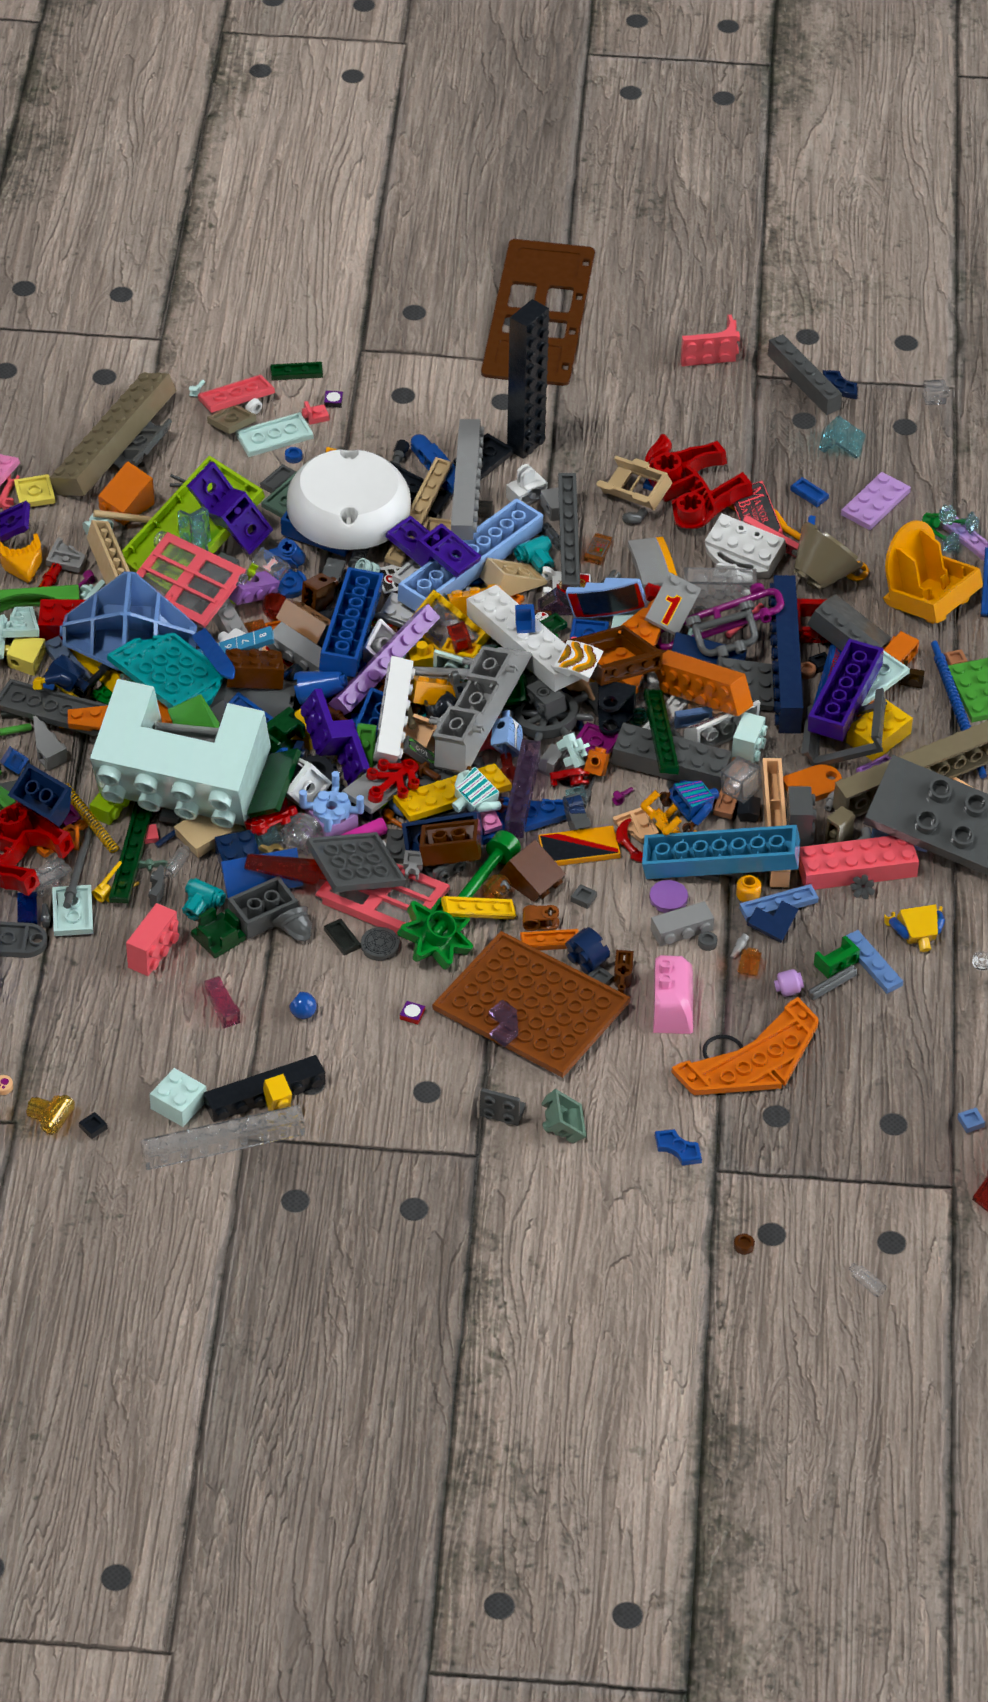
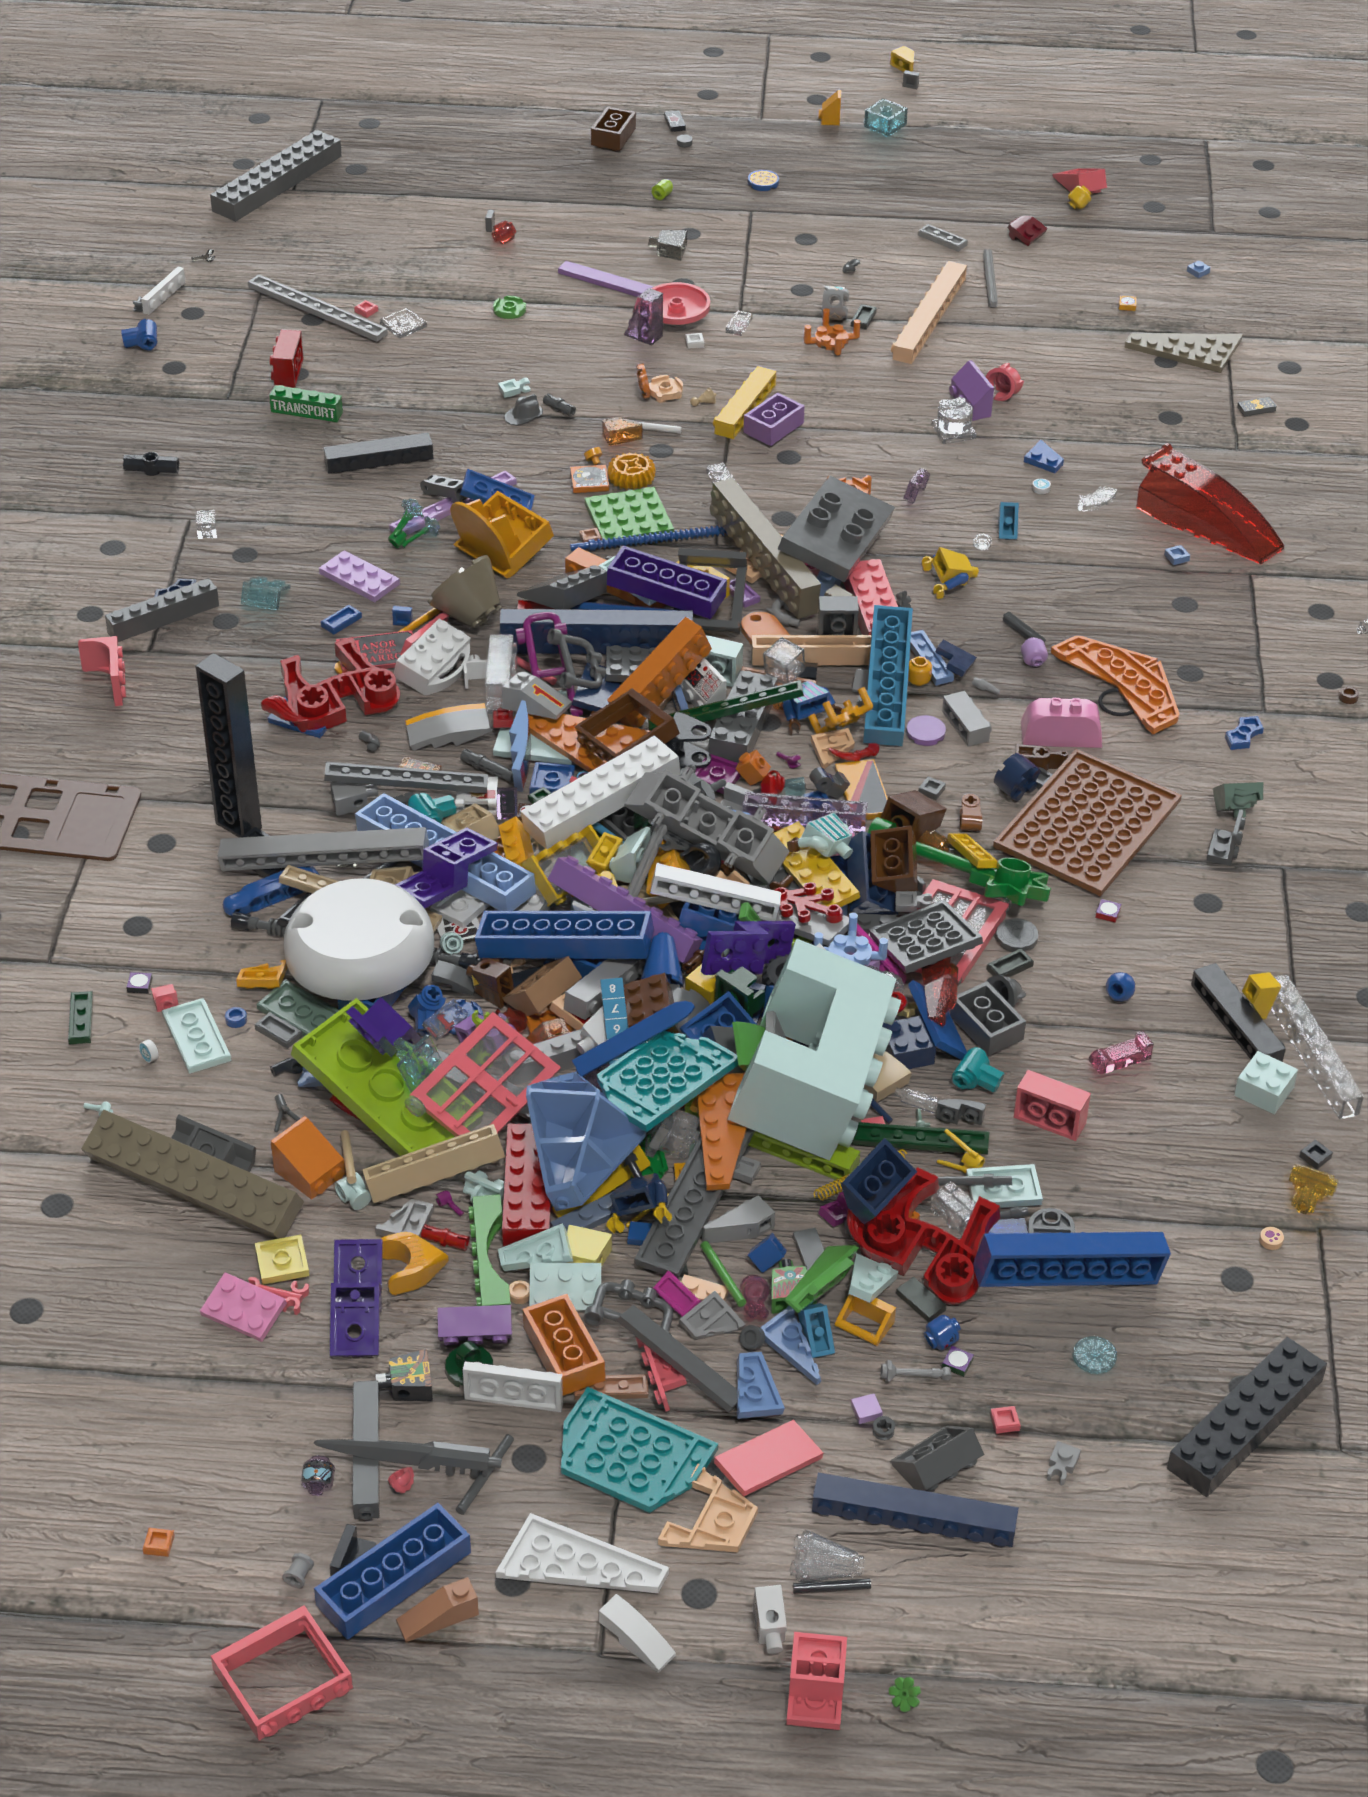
camera: 90 degrees left, 5 degrees down
(218, 932) = (1019, 1056): dark green panel -> none
(231, 419) = (171, 1068): dark tan plate -> none
(236, 393) = (120, 1068): coral tile -> none
(459, 637) = (599, 842): clear red brick -> none
(508, 1026) = (1134, 831): clear purple tile -> none
(525, 618) = (597, 772): blue panel -> none
(527, 485) = (323, 814): white brick -> none
(548, 939) = (993, 811): orange tile -> none
(575, 748) = (749, 774): light aqua hips -> none
(578, 659) = (663, 733): slope -> none
(642, 469) = (315, 747): tan piece -> none
(707, 941) = (984, 705): dark grey tile -> none
(750, 962) = (1009, 675): clear orange bracket -> none
(838, 959) = (995, 622): green panel -> none
(875, 964) = (993, 605): medium blue plate -> none

